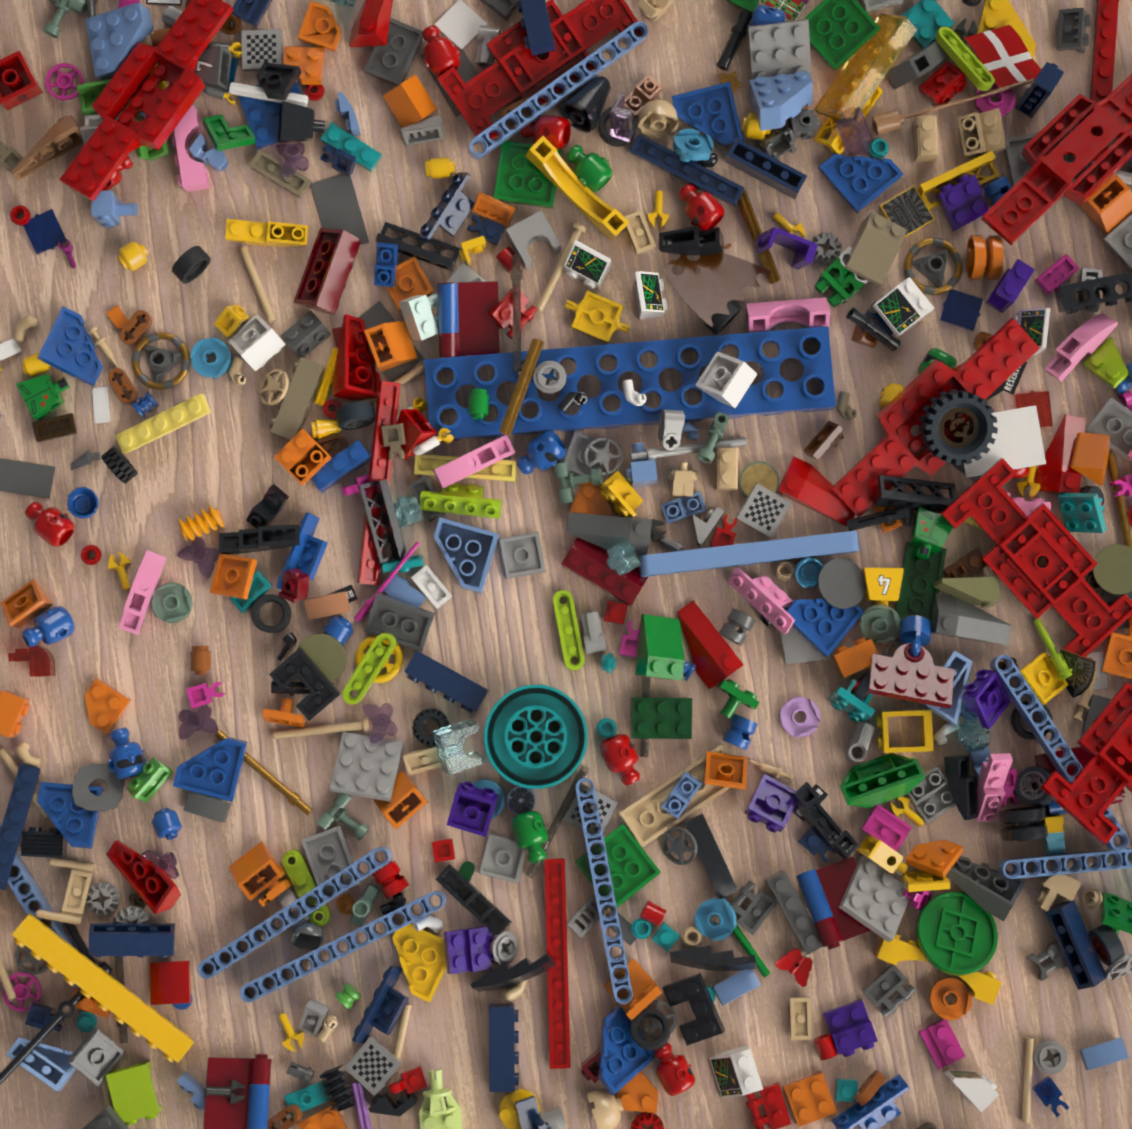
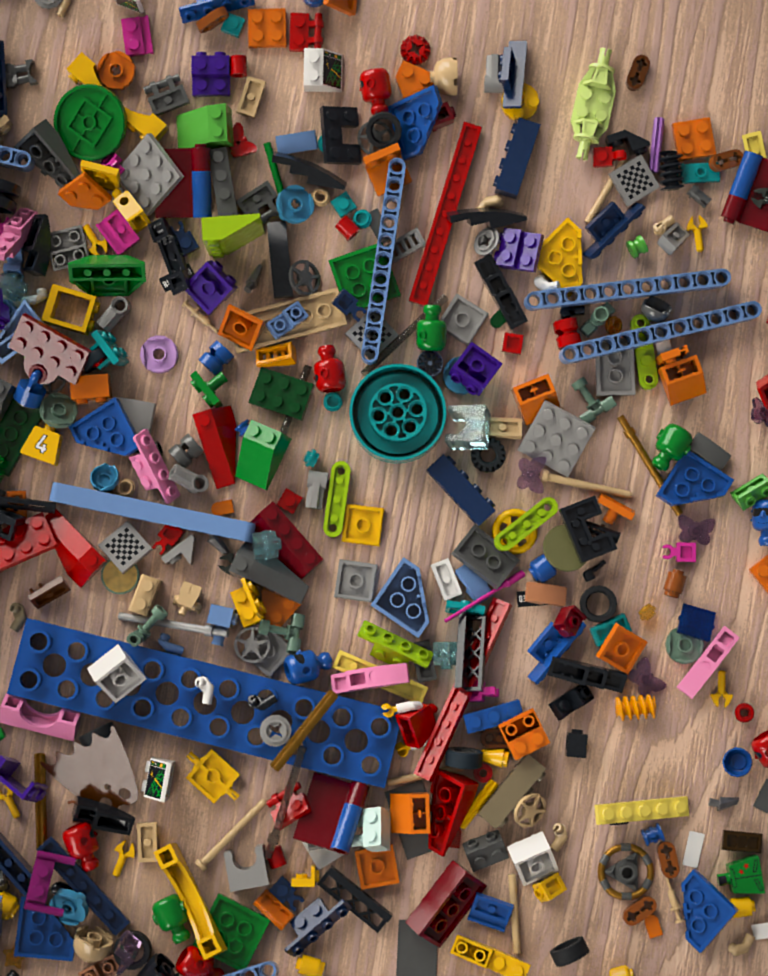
camera: 160 degrees left, 0 degrees up
(119, 465) = (693, 785): black tyre -> none
(166, 628) = (696, 622): none -> clear blue piece
(166, 824) = (749, 448): blue head -> none
(212, 369) = (568, 854): dark azure plate -> none
(219, 622) = (647, 612): none -> clear yellow plate
(246, 800) = (672, 444): none -> green piece
(248, 467) = (576, 744): none -> black brick
(281, 277) = (490, 912): none -> blue plate
(386, 264) = (389, 890): blue slope -> none
(394, 437) = (434, 723): dark tan plate -> none
(478, 403) = (348, 727): green brick -> none
(534, 613) = (362, 525): none -> yellow tile
(587, 265) = (206, 826): slope -> none
(626, 832) = (347, 303): none -> dark blue plate
(630, 642) = (286, 469): dark pink plate -> none
(671, 428) = (182, 647): light grey piece -> none
(671, 752) = (283, 360): none -> light orange slope
(680, 583) = (222, 508): none -> orange piece
(683, 507) = (196, 574): medium blue slope -> none
(725, 598) = (187, 479): none -> light grey piece
(728, 158) = (41, 880): none -> magenta plate
(730, 827) = (253, 280): none -> flat silver bar
(772, 861) = (229, 233): none -> lime slope
(835, 969) = (207, 126): none -> bright green slope
(841, 583) = (79, 457): dark grey piece -> none

